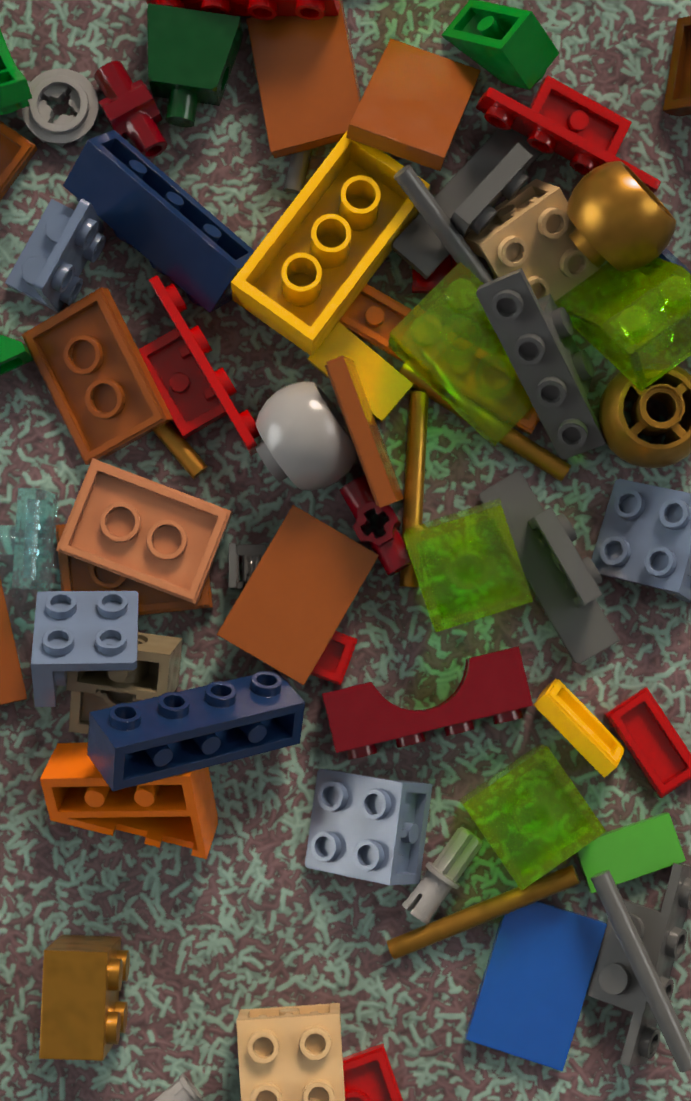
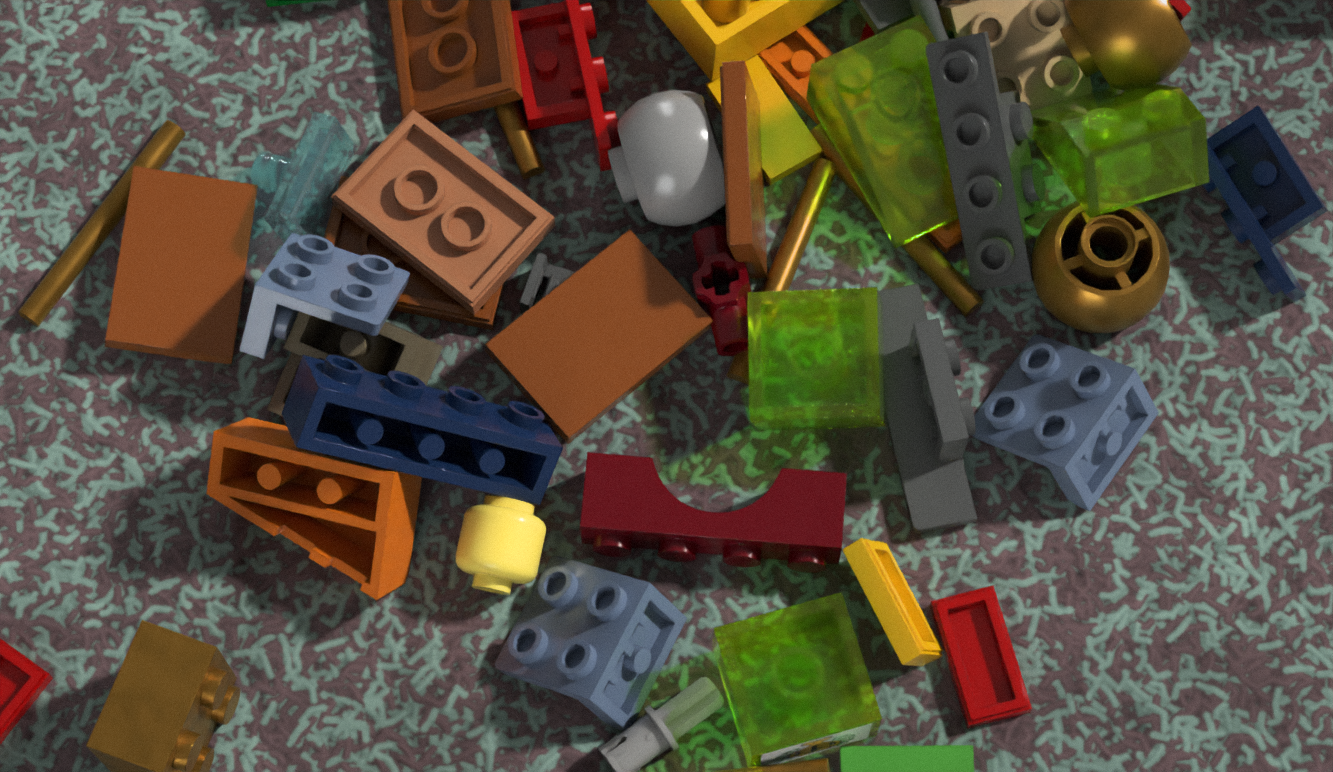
camera: 20 degrees right, 15 degrees down
(280, 782) = (500, 544): none -> light yellow head
(335, 658) = (618, 428): red tile -> none

